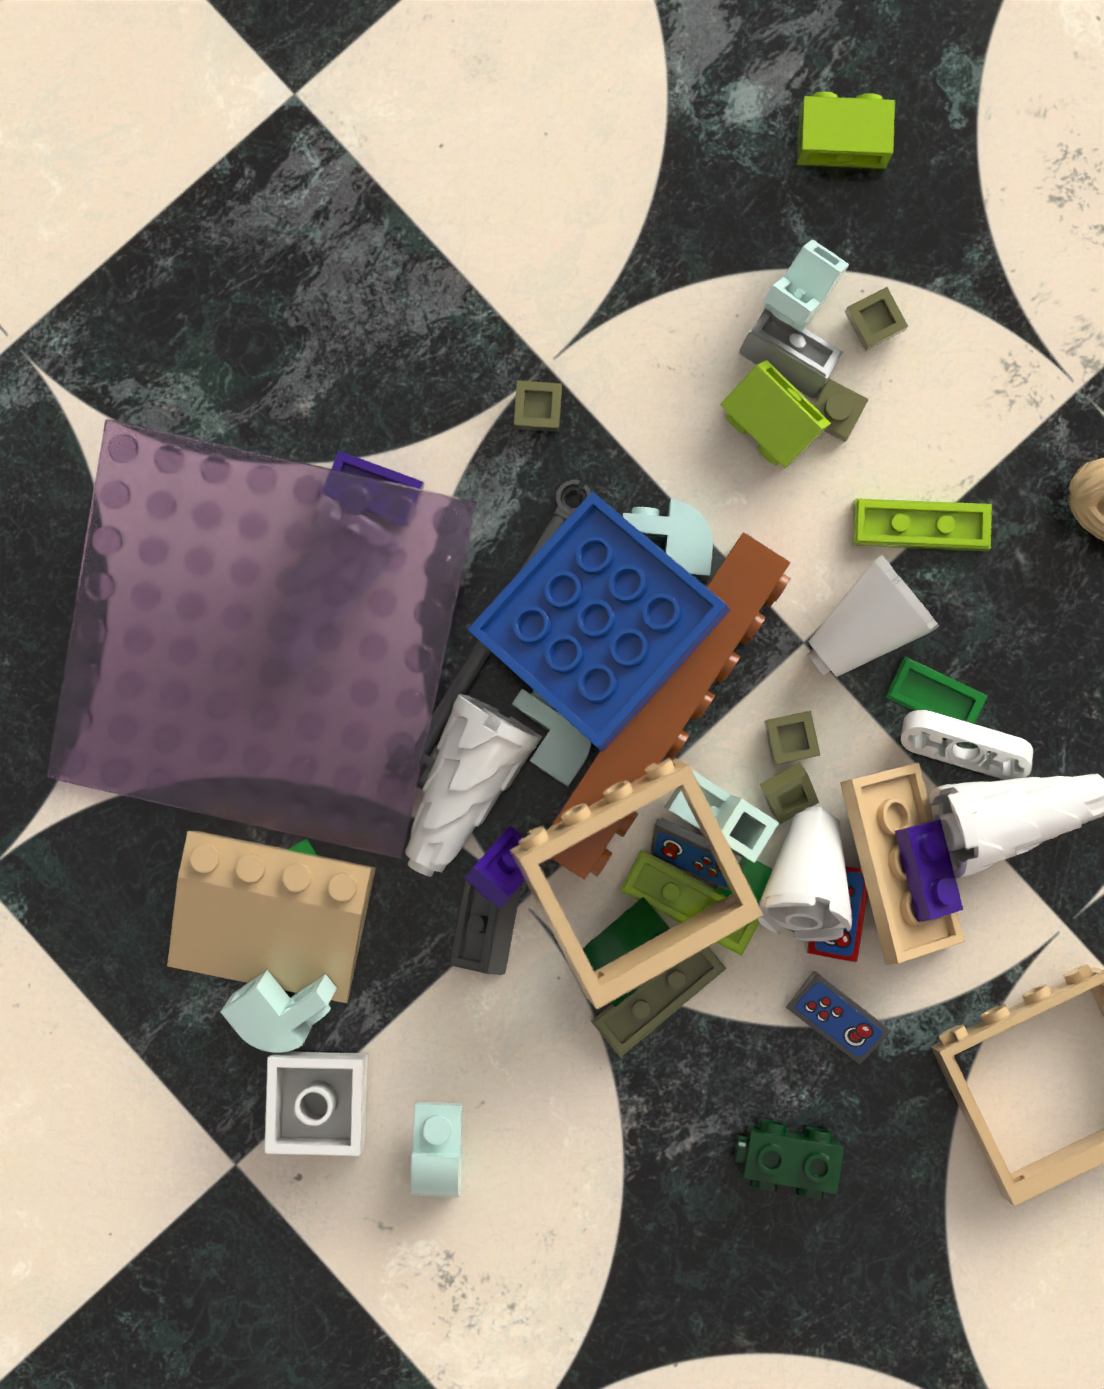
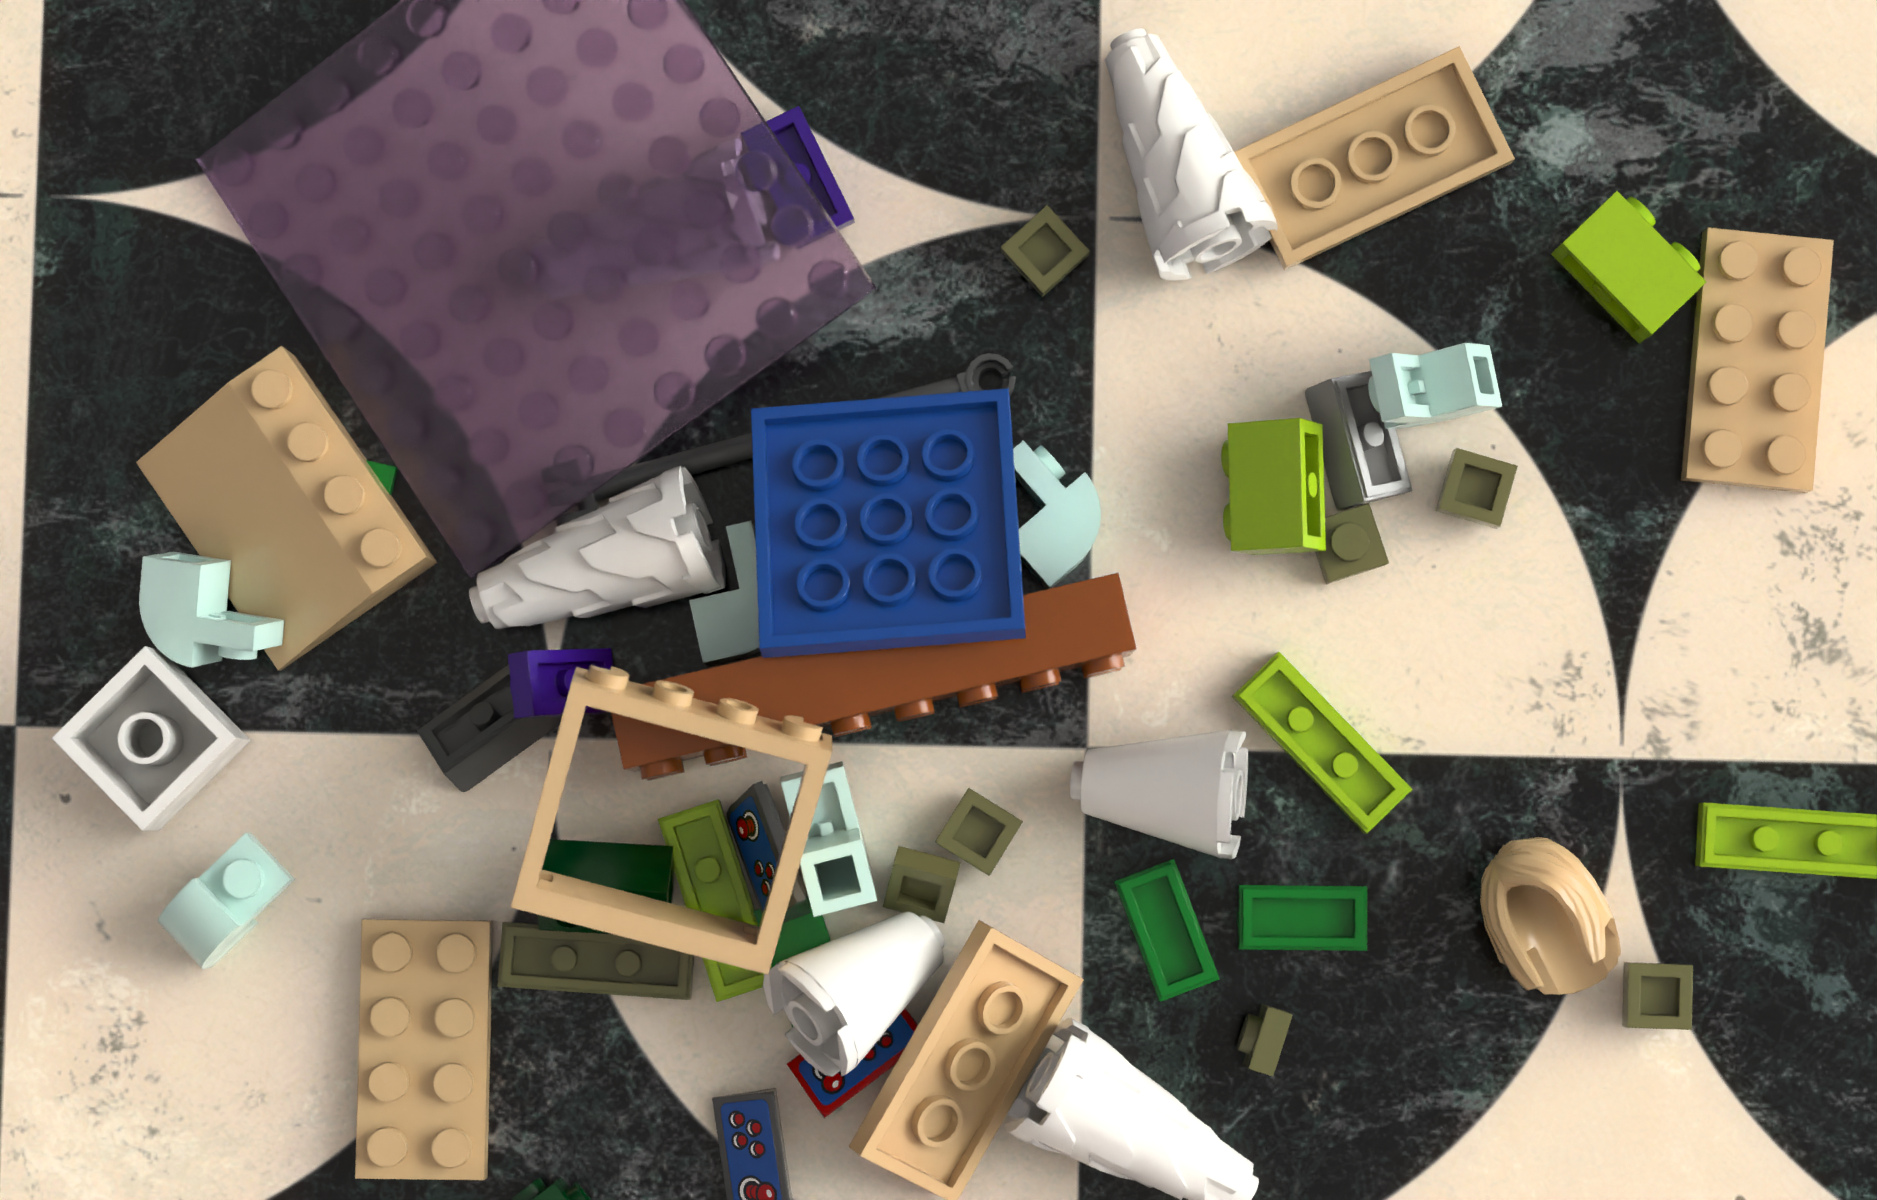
camera: 40 degrees right, 0 degrees up
(566, 292) = (1185, 174): none -> white cone
(613, 1127) = (424, 1049): none -> tan plate
(660, 199) = (1375, 156): none -> tan plate
(929, 870) = (984, 1095): dark purple plate -> none
(940, 726) = (1125, 973): white beam -> none
(955, 119) = (1757, 360): none -> tan plate
(998, 624) = (1301, 917): none -> green tile
(1041, 704) = (1263, 1038): none -> olive plate

